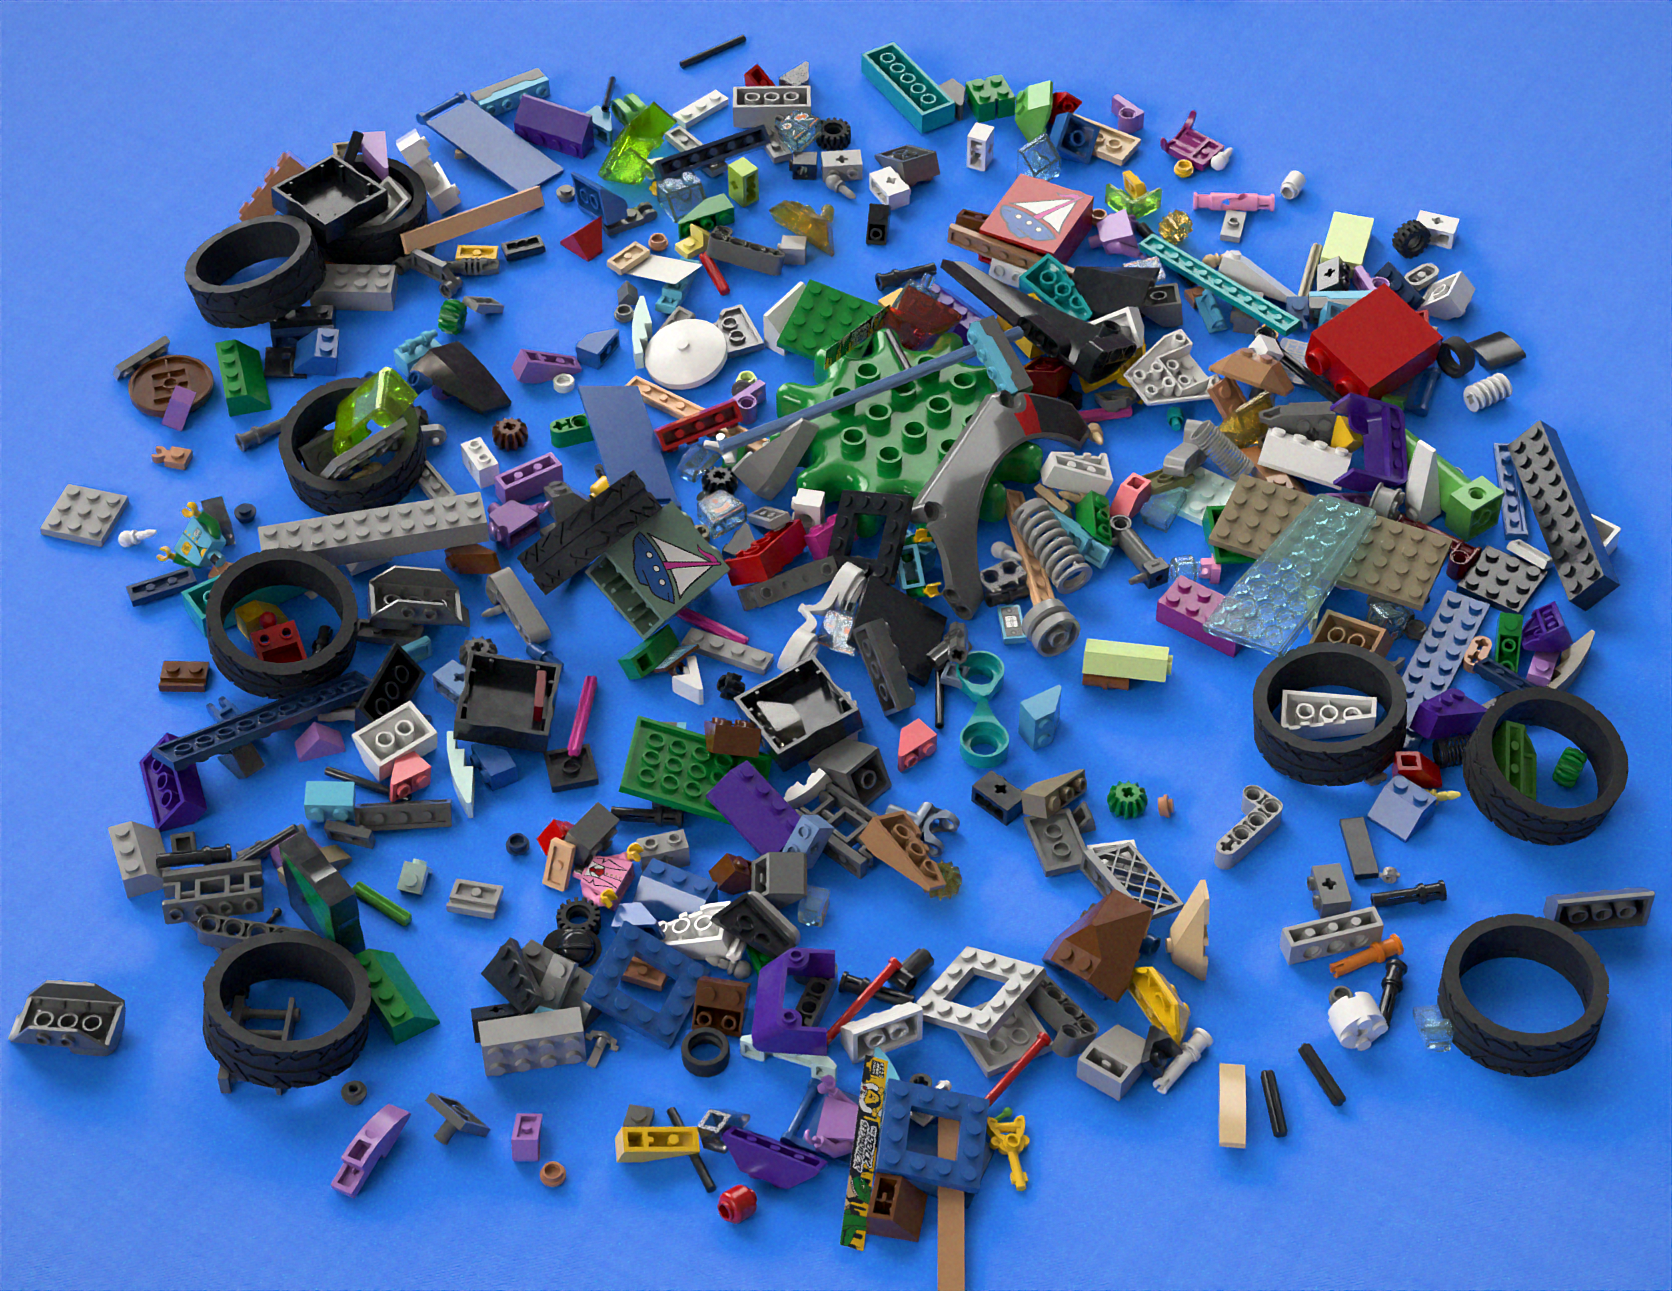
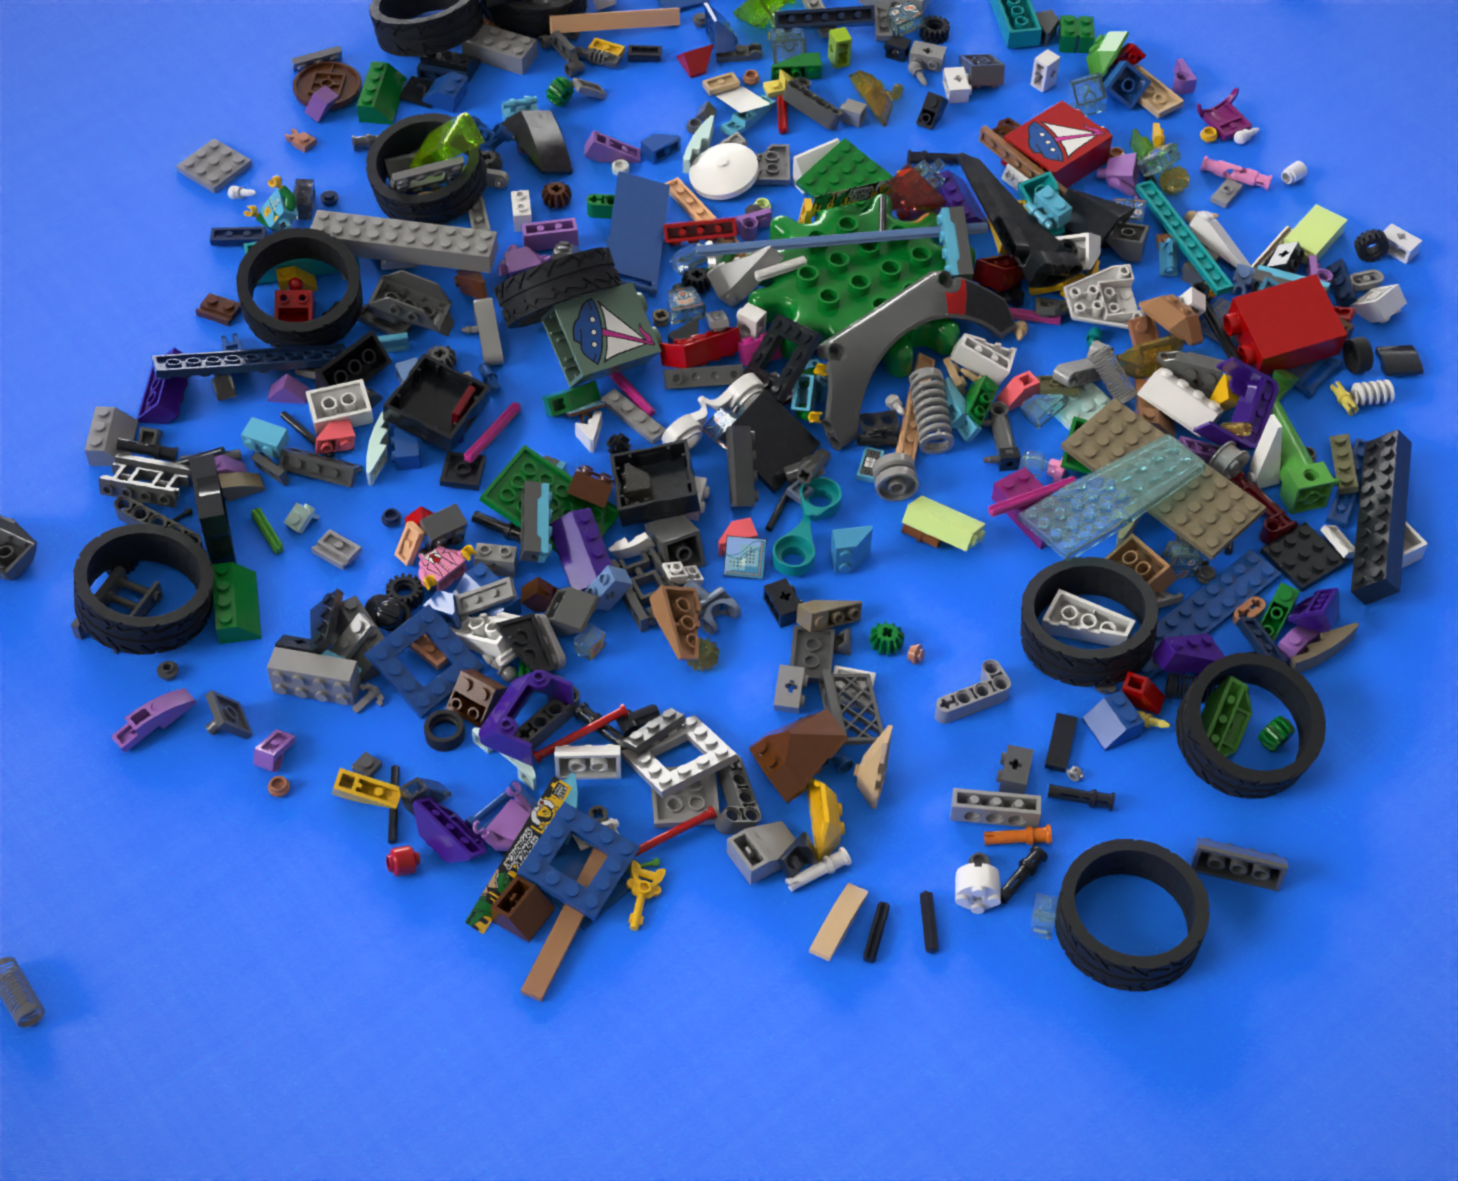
camera: 20 degrees right, 5 degrees up
(681, 892) = (486, 596): none -> light grey plate
(693, 795) = (535, 522): none -> piece
(806, 371) = (805, 215): none -> yellow plate
(819, 440) = (780, 268): none -> white axle
(876, 801) = (681, 574): none -> white slope
(934, 762) = (745, 557): none -> piece
(936, 975) = (654, 730): none -> dark grey plate
(1053, 897) = (787, 677): none -> light grey brick
(1069, 293) = (1049, 208): none -> medium azure brick
(1153, 208) = (1165, 156): none -> clear light blue torso
(1205, 604) = (1028, 498): none -> dark pink axle
(1383, 467) = (1238, 428): none -> clear yellow cylinder
(1461, 406) = (1344, 398): none -> light yellow pin
(1496, 472) = (1344, 463): none -> olive plate

